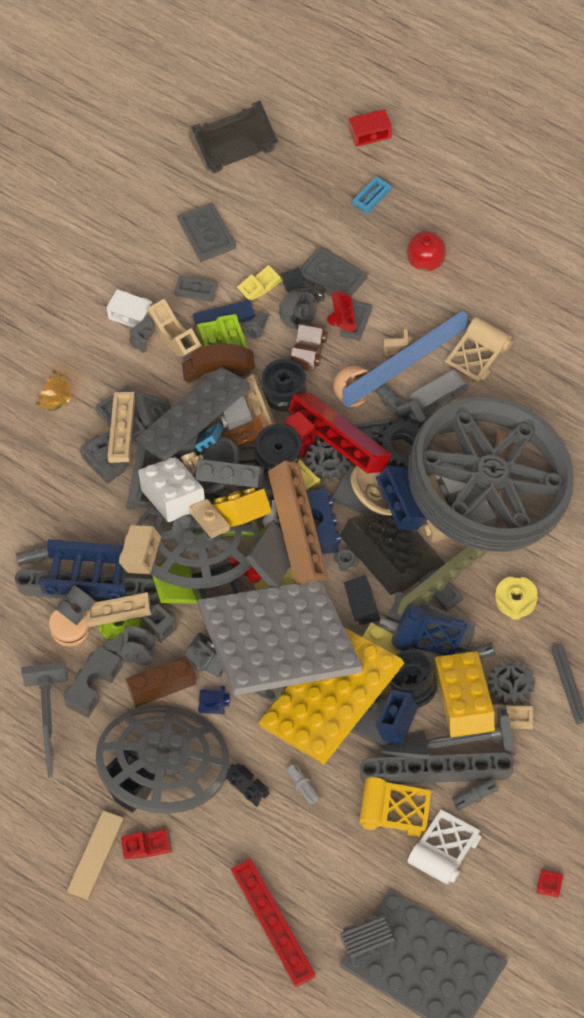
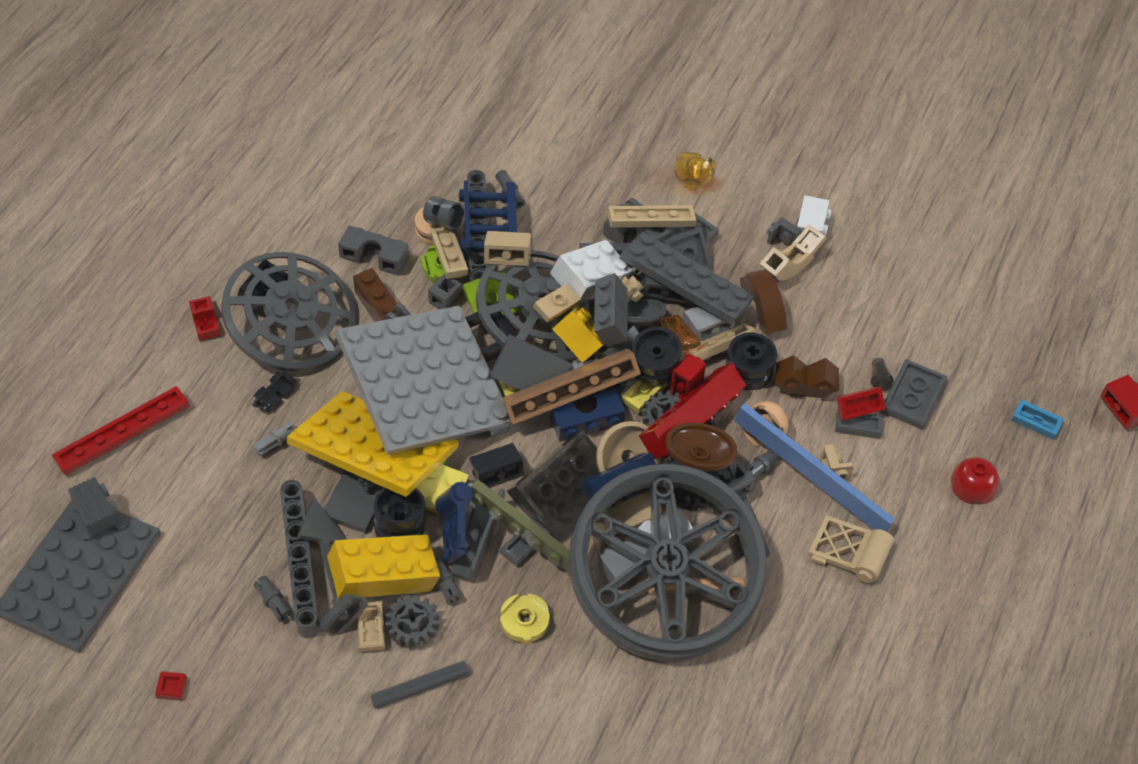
camera: 75 degrees right, 5 degrees down
(44, 676) = (291, 217): dark grey piece -> none
(95, 855) = (189, 280): tan tile -> none
(133, 645) = (411, 272): dark grey hinge -> none
(196, 288) = (856, 272): dark grey plate -> none
(206, 232) = (934, 273): dark grey tile -> none
(206, 439) = (666, 300): dark azure tile -> none
(222, 331) = (802, 301): lime slope -> none
(233, 138) = (1062, 274): clear smoke windscreen -> none
(243, 311) = (830, 302): dark blue tile -> none
(255, 327) = (824, 330): dark grey cone -> none
(260, 284) = (878, 327): light yellow slope -> none
(292, 279) = (894, 355): black tile -> none
(297, 307) = (853, 360): dark grey cylinder -> none
(345, 554) = (545, 441): dark grey plate -> none
(376, 806) = (250, 506): yellow piece -> none
(393, 424) = (701, 446): none -> reddish brown dish
(396, 716) = (349, 505): dark blue brick -> none
(437, 862) = (190, 568): white piece -> none
(439, 392) = (780, 511): light grey beam -> none

